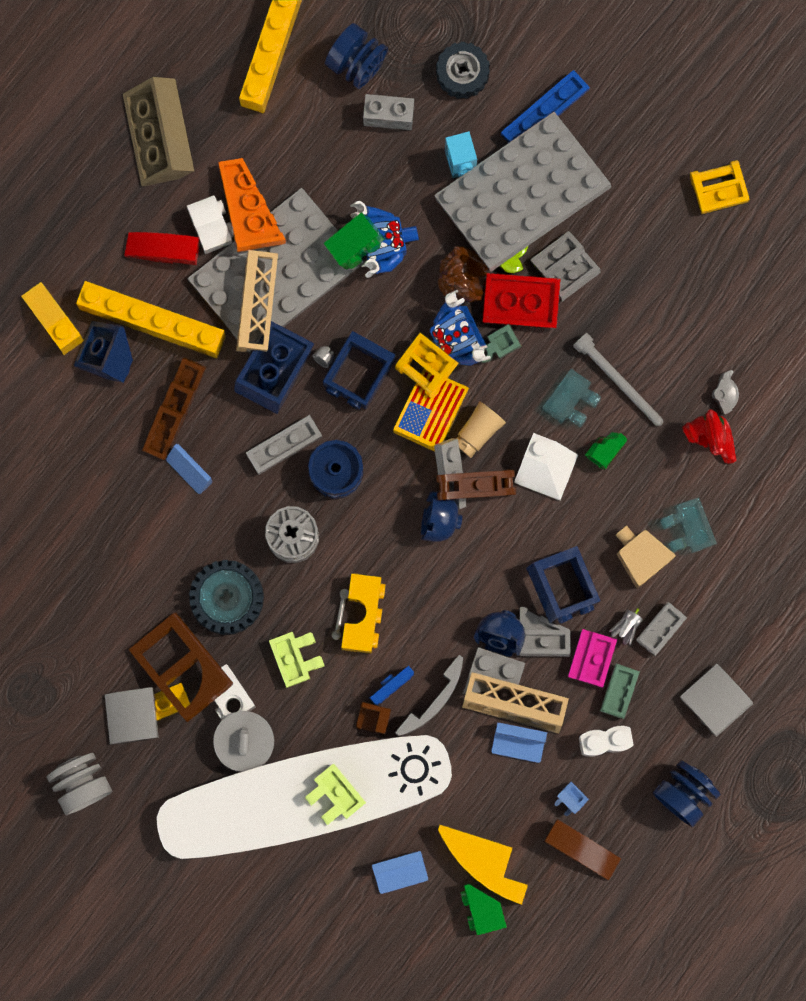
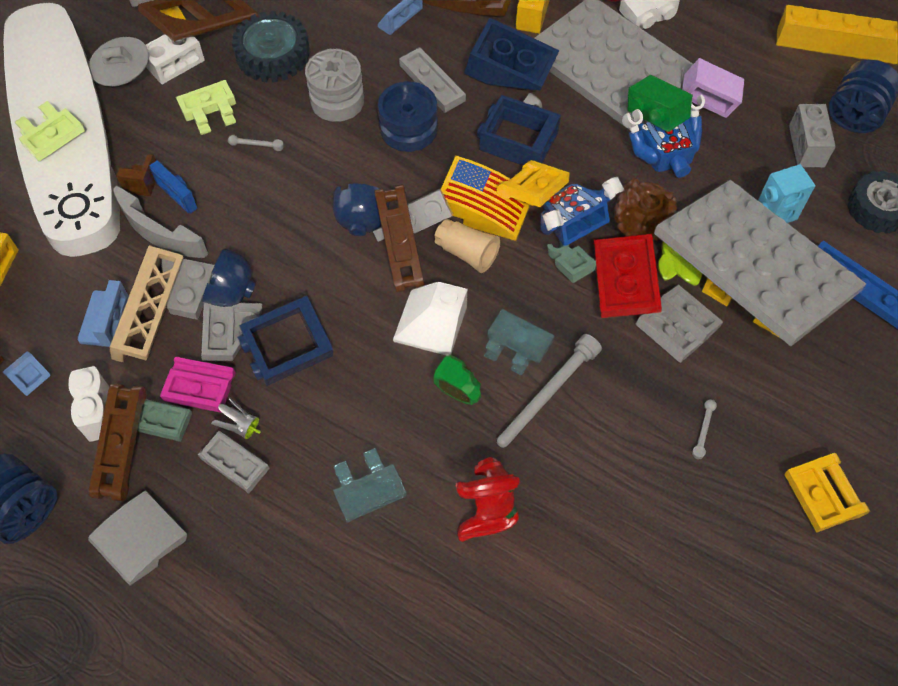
camera: 85 degrees right, 20 degrees down
(247, 301) = (577, 30): tan fence -> none
(249, 215) = (669, 27): orange wing -> none
(328, 187) = (719, 87): none -> lavender brick
(362, 636) = (273, 159): yellow arch -> none
(642, 555) = (326, 430): tan torso -> none
(642, 716) = (116, 442): none -> reddish brown plate
(677, 273) = (699, 450): none -> light grey hinge
(726, 393) = (551, 521): light grey piece -> none

